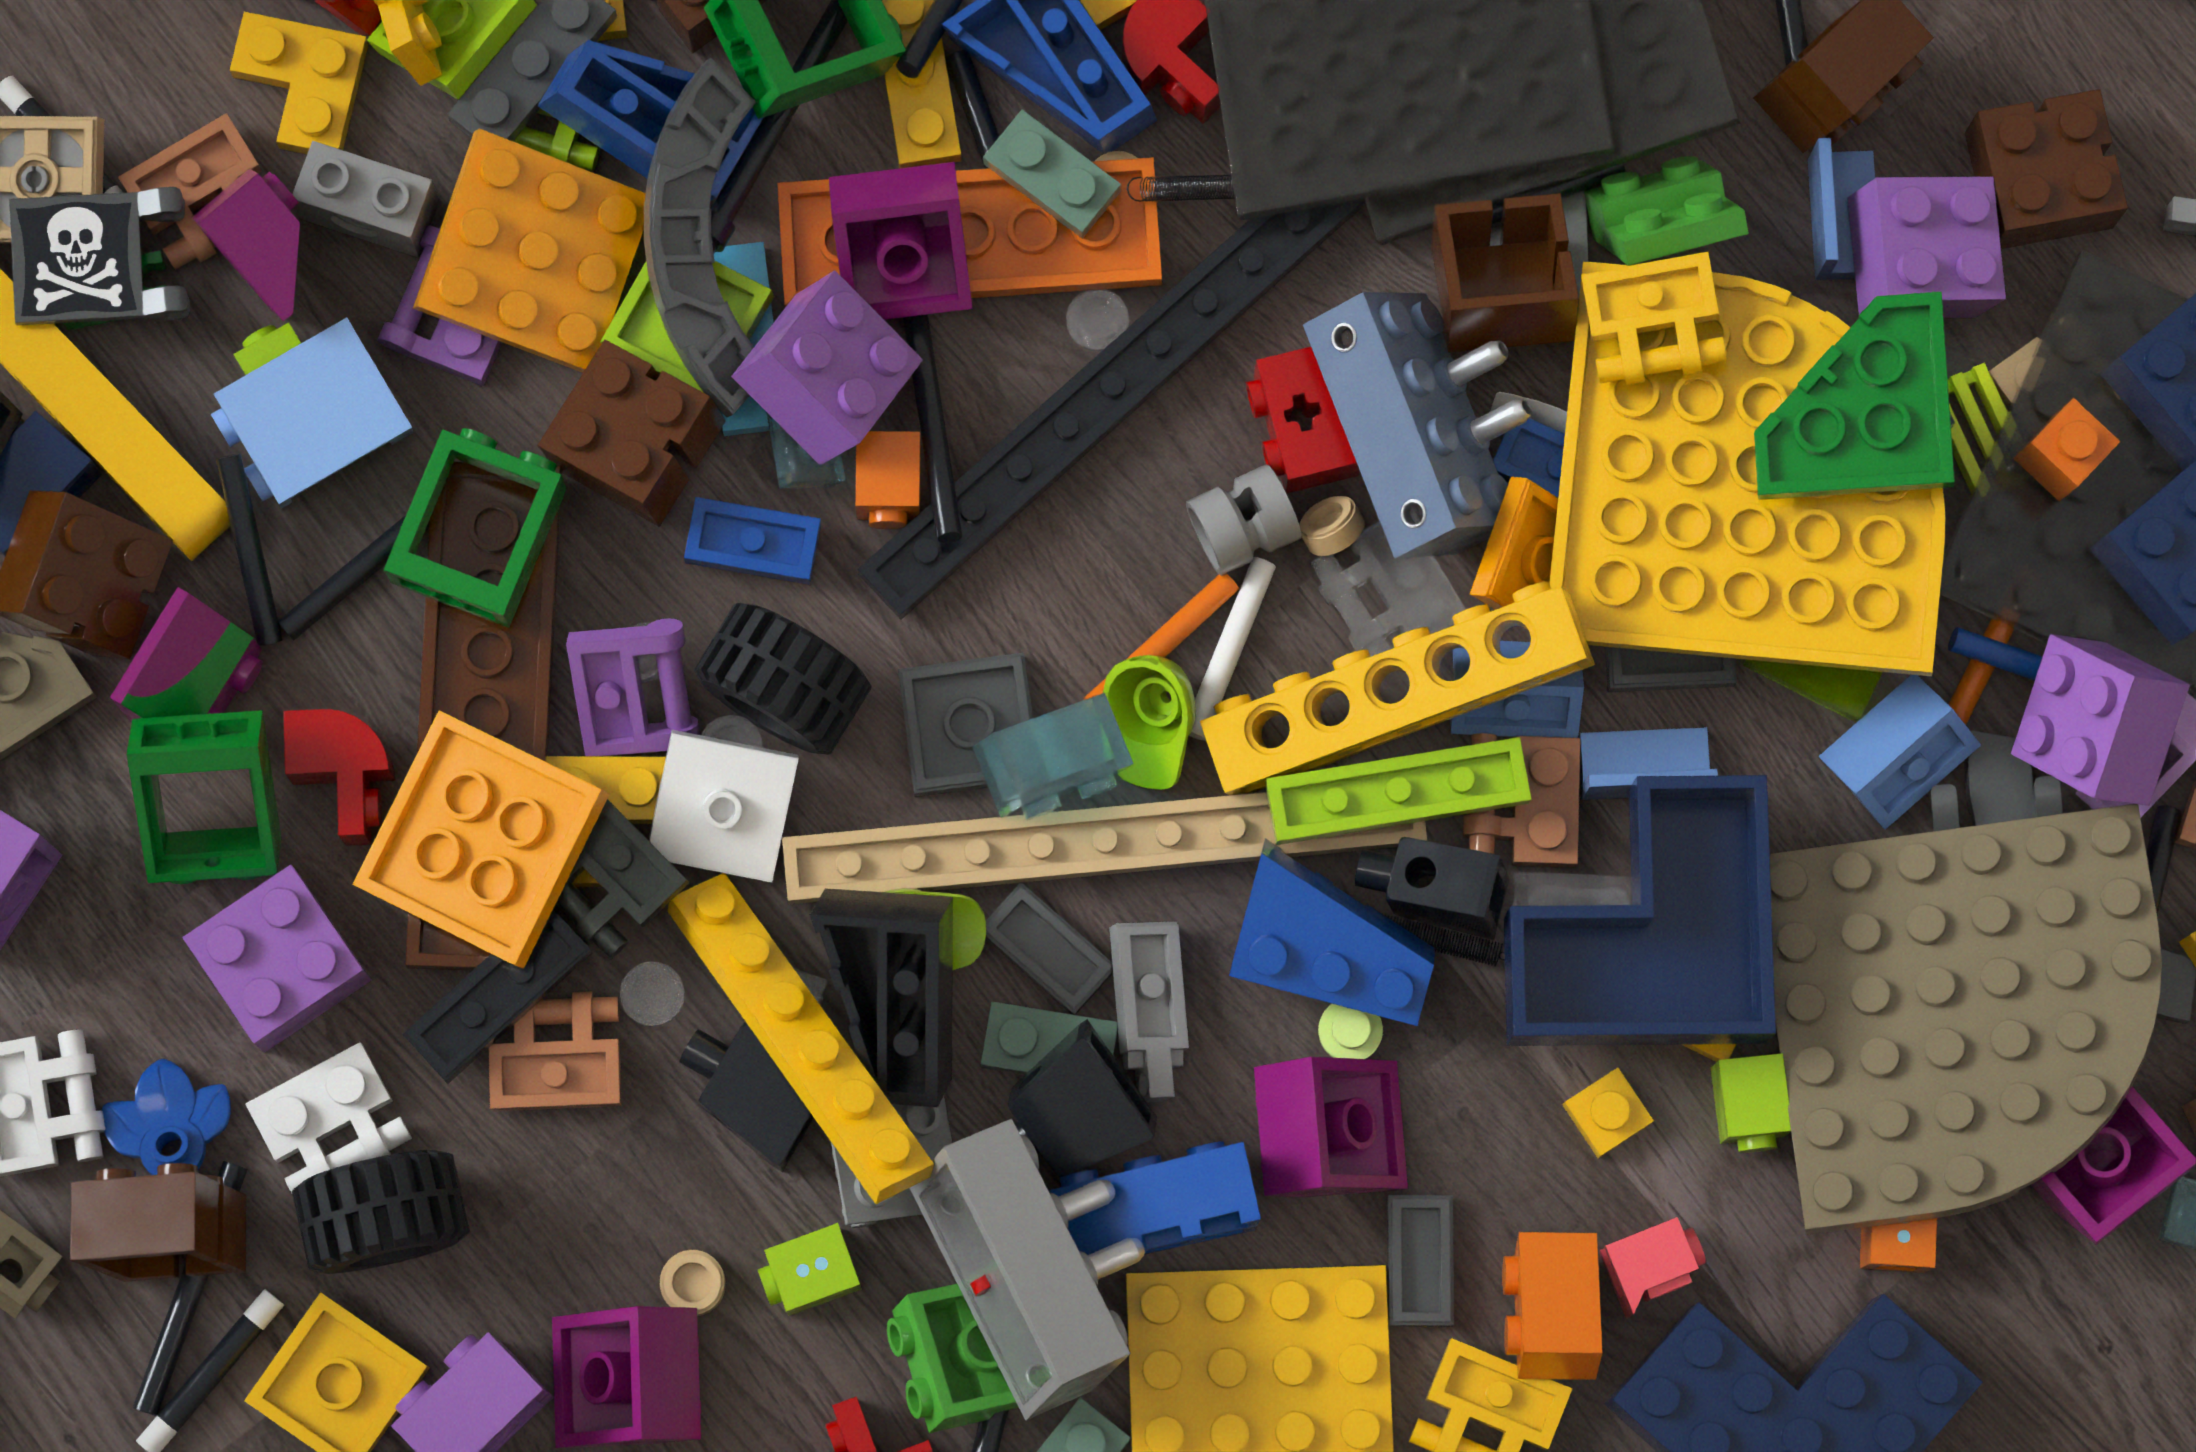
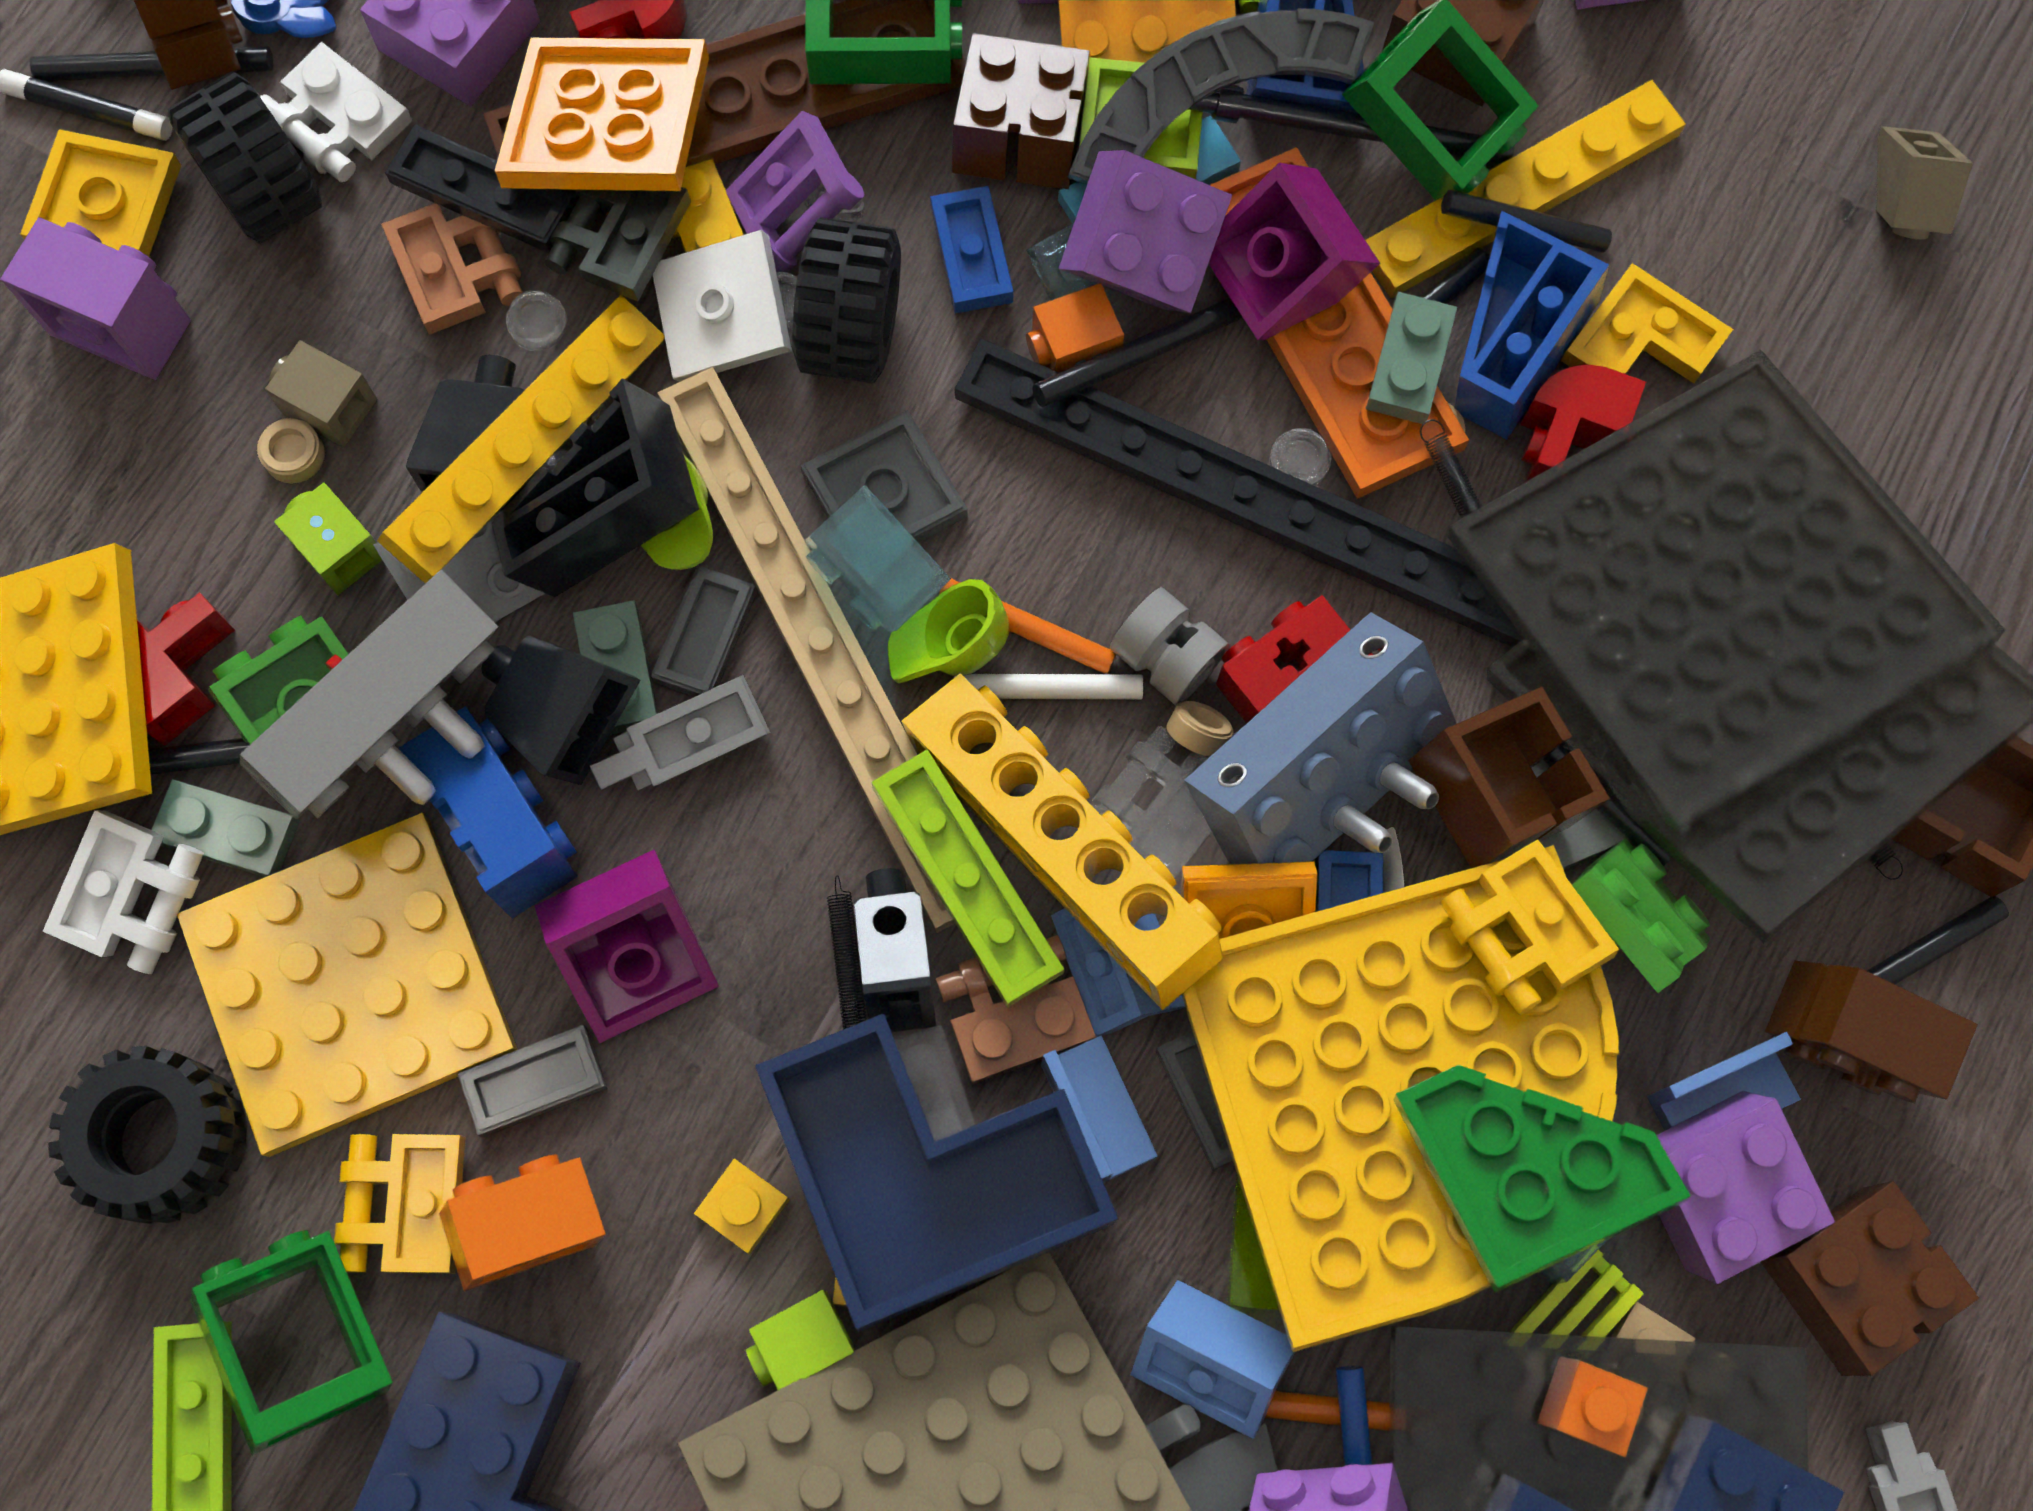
camera: 70 degrees right, 5 degrees down
(626, 1377) = (180, 427): magenta slope -> none
(649, 1231) = (321, 392): none -> dark tan brick
(1327, 945) = (795, 869): blue wedge -> none
(1349, 1032) = (729, 929): yellowish green plate -> none
(1652, 1263) = (603, 1304): coral window -> none

